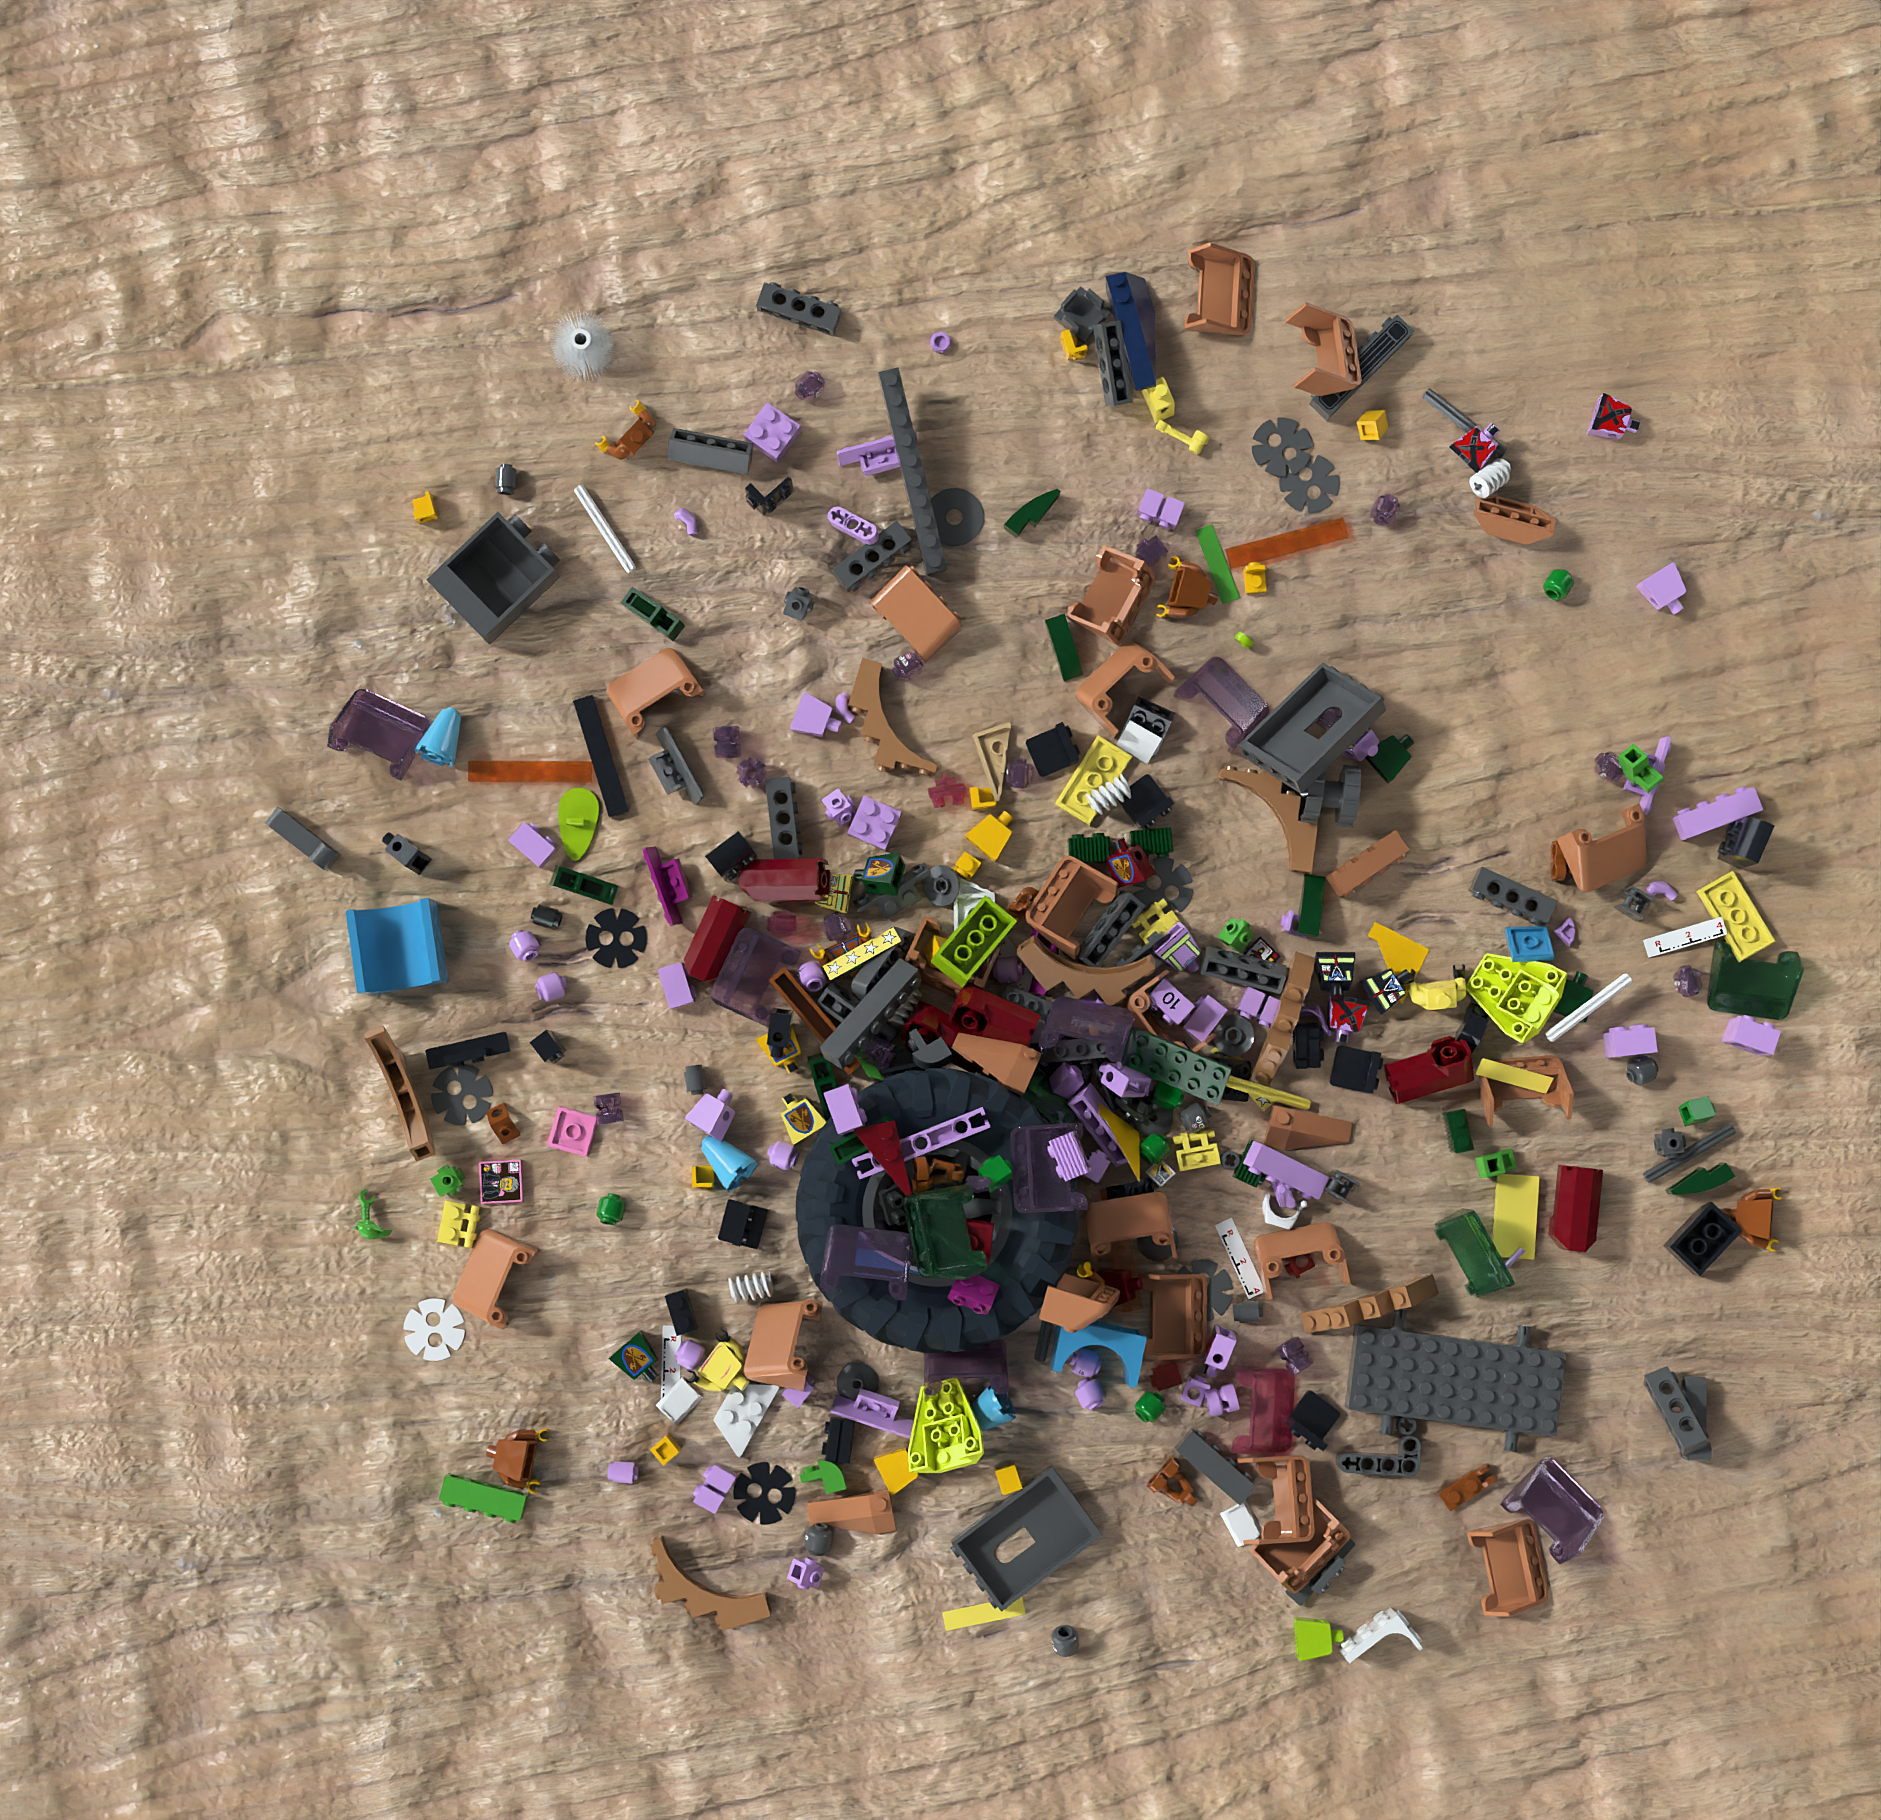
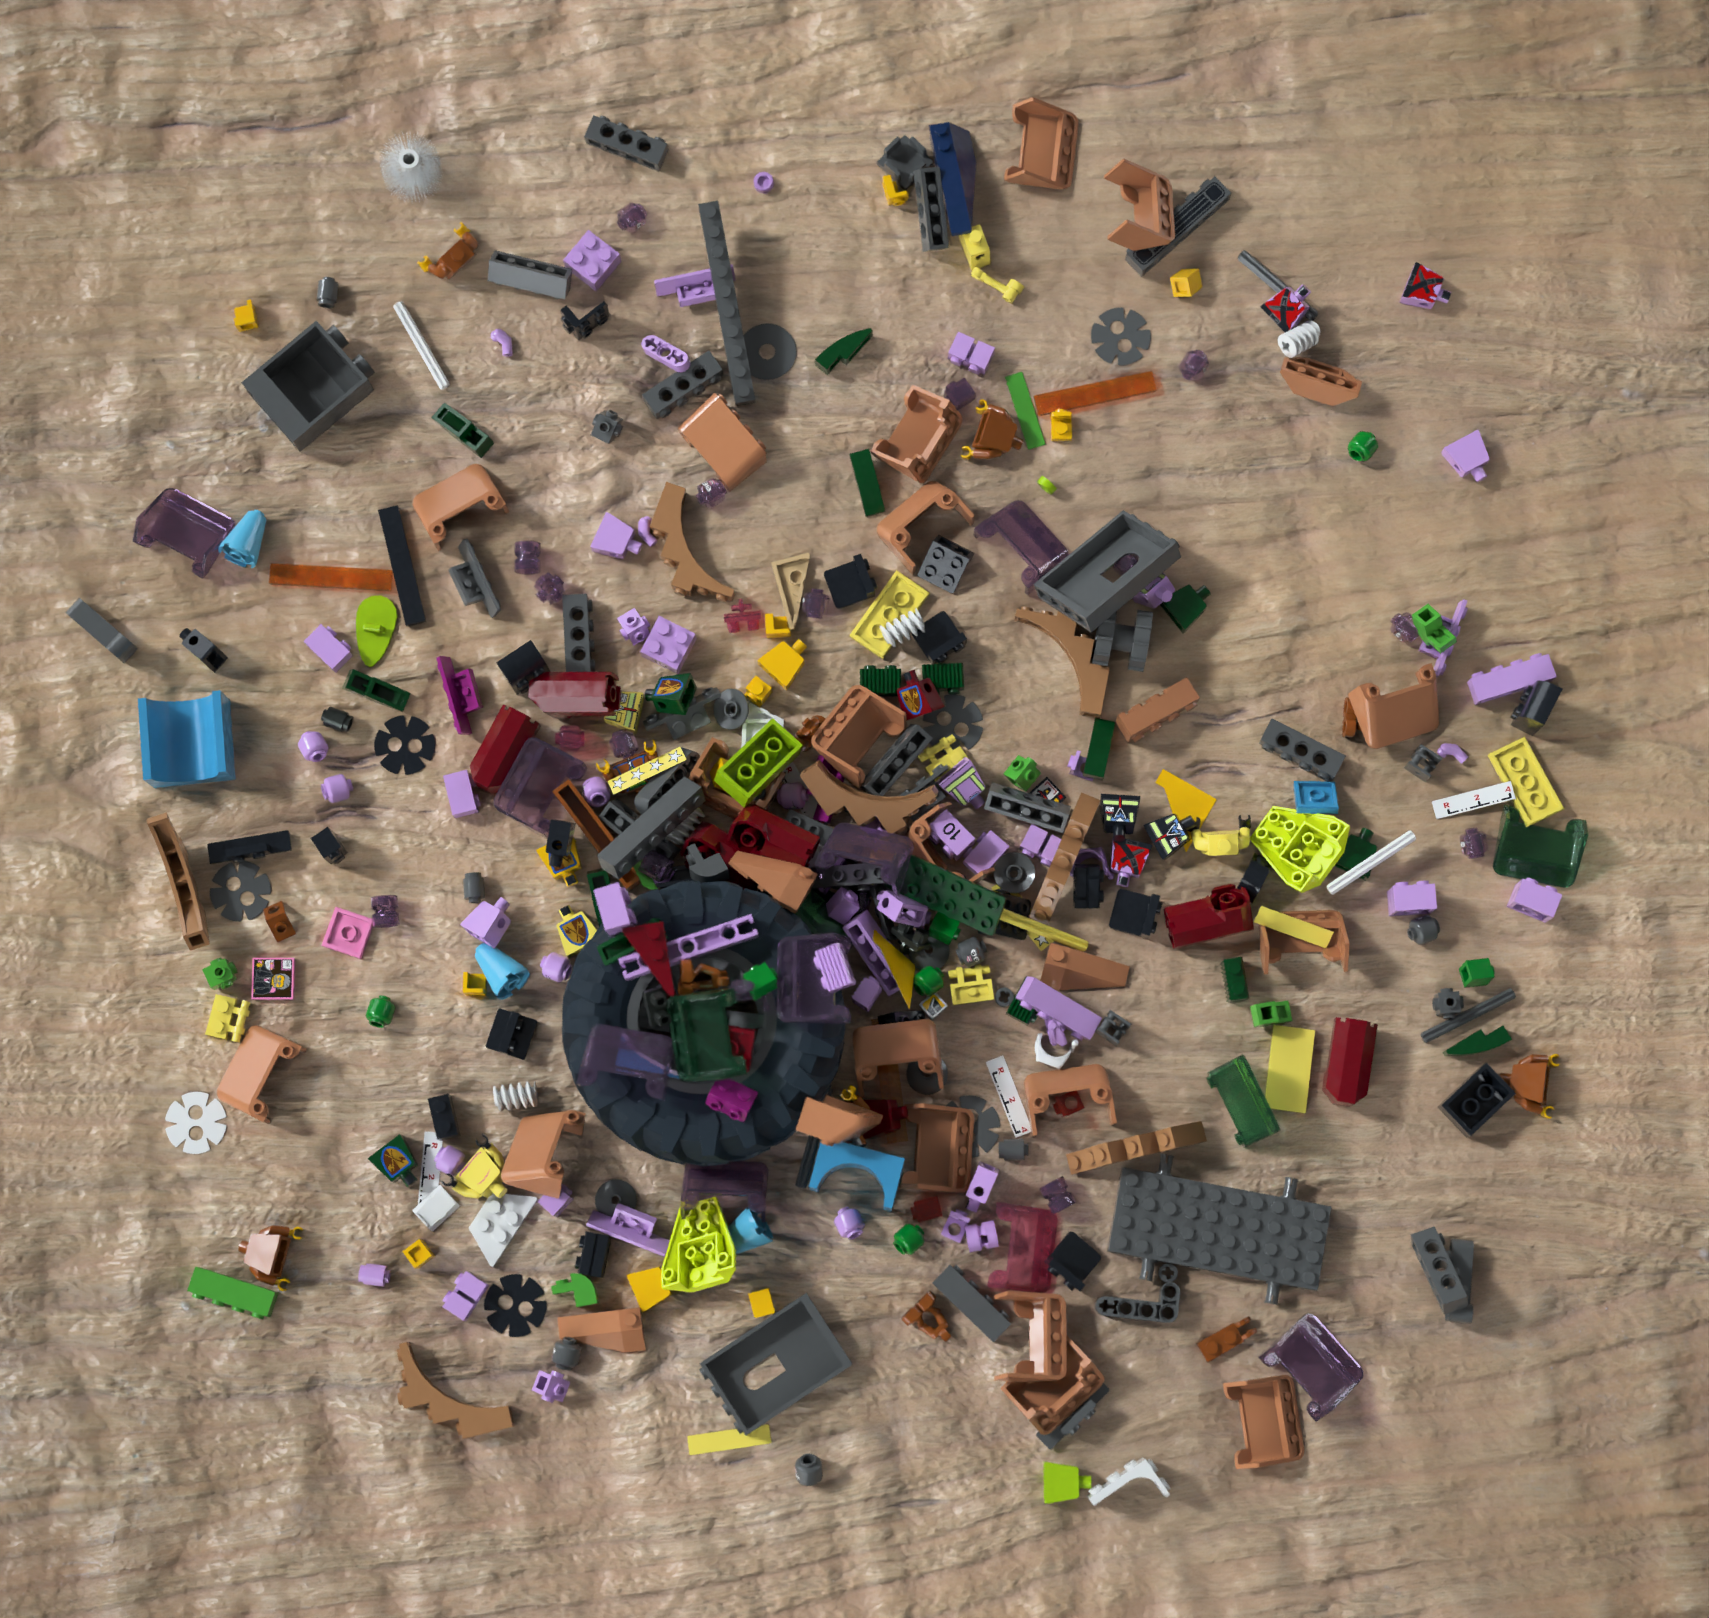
camera: 10 degrees right, 5 degrees down
(367, 1228) = (136, 1016): bright green piece -> none
(1085, 1362) = (846, 1191): lavender head -> none
(1138, 742) = (936, 578): white sticker -> none
(1241, 1523) = (994, 1361): white piece -> none
(1285, 430) = (1100, 284): dark grey piece -> none
(1514, 1257) = (1285, 1110): lavender piece -> none
(1566, 931) = (1354, 788): lavender tile -> none

